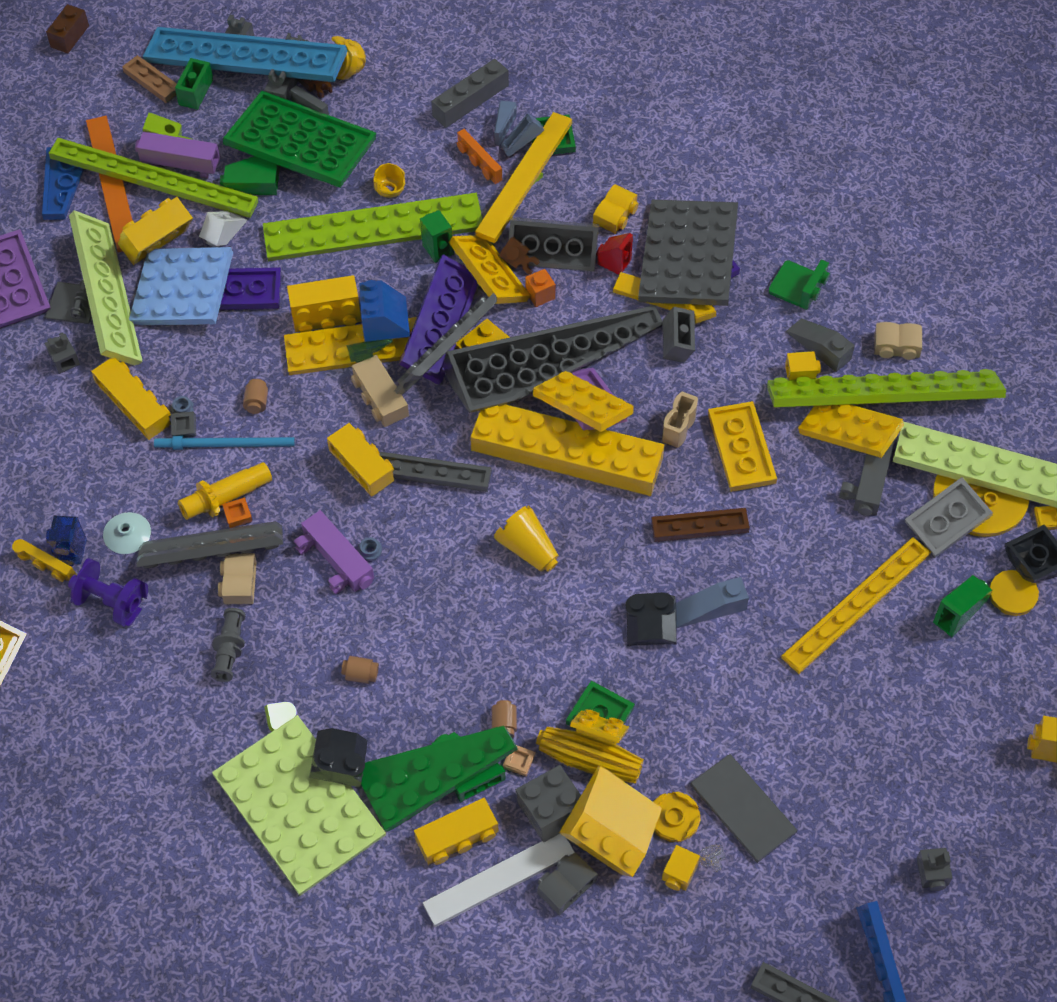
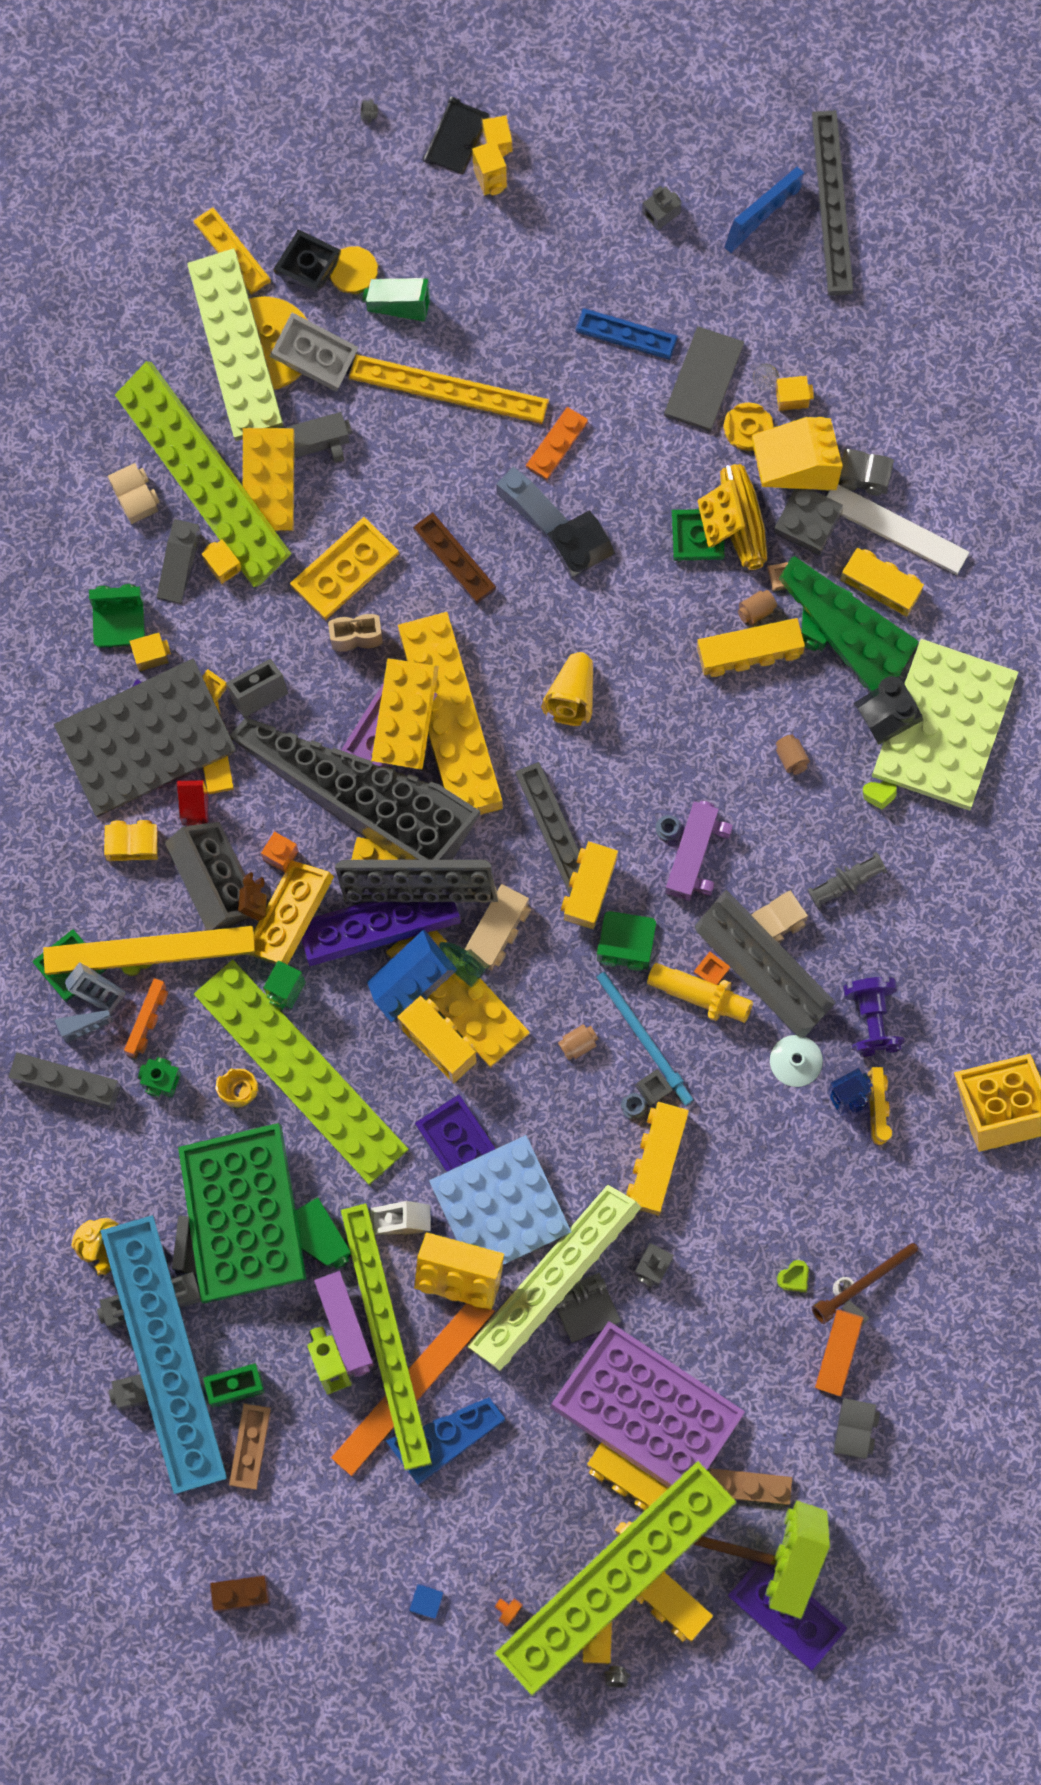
camera: 120 degrees left, 15 degrees up
(302, 466) = (626, 940): none -> green bracket
(430, 142) = (165, 1084): none -> green brick
(473, 690) = (750, 647): none -> yellow brick
(755, 657) = (556, 443): none -> orange plate
(757, 287) = (150, 651): none -> yellow brick
(825, 770) = (626, 333): none -> blue tile

